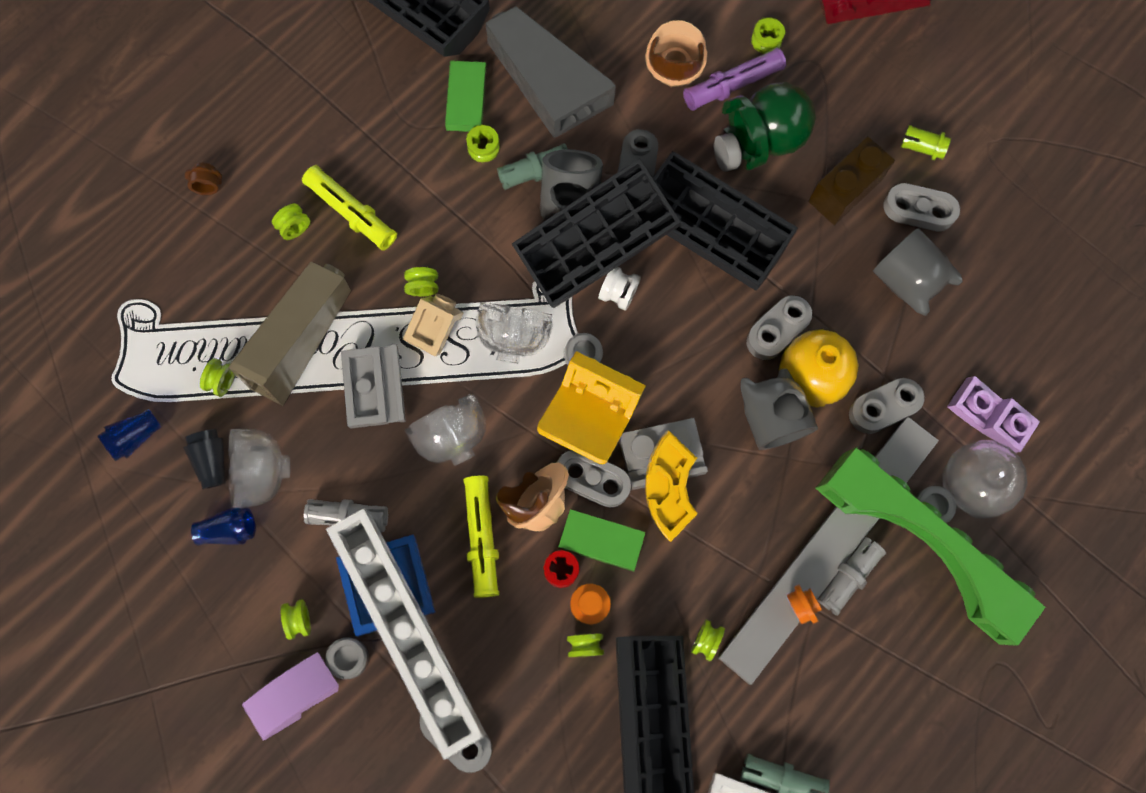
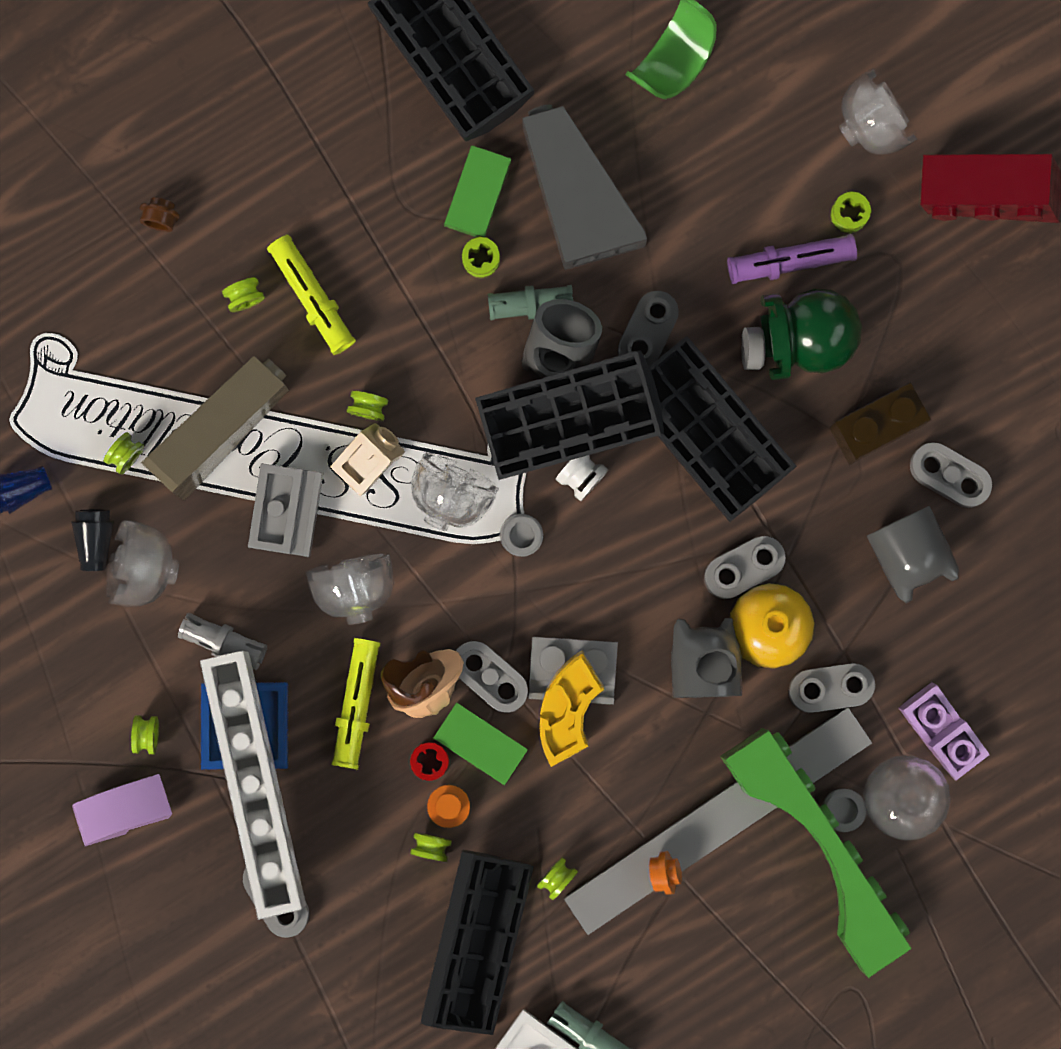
camera: 20 degrees right, 10 degrees up
(227, 528) = (94, 619): clear blue cone -> none
(347, 658) = (187, 788): light grey tile -> none
(591, 408) = (507, 604): yellow bracket -> none
(676, 53) = (731, 214): light nougat piece -> none
(851, 576) = (728, 857): light grey pin -> none
(928, 143) = (985, 398): lime pin -> none

